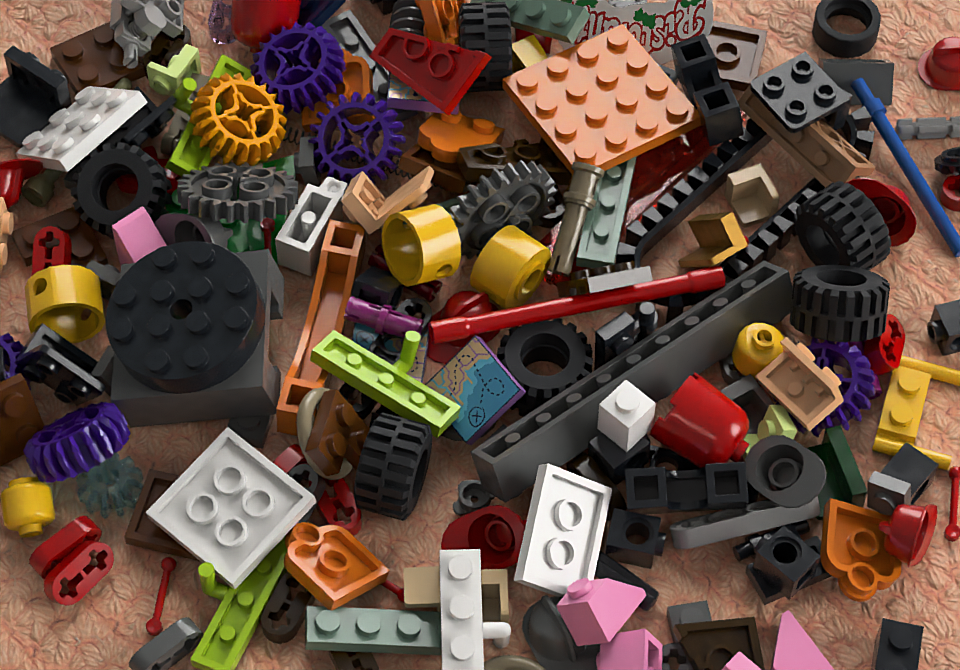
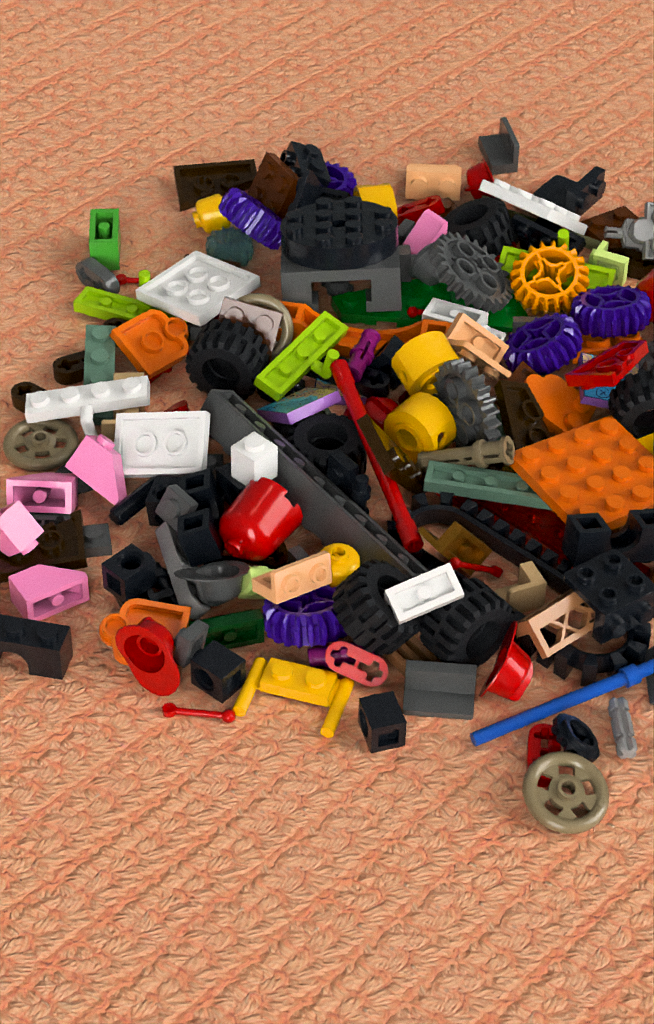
camera: 90 degrees right, 15 degrees down
(62, 543) = (181, 232): red beam -> none
(78, 572) = (158, 242): red beam -> none
(90, 637) = (105, 237): none -> bright green brick
(680, 511) = (174, 504): none -> dark grey plate
(849, 246) = (423, 593): none -> white panel
(908, 278) = (439, 689): none -> dark grey panel

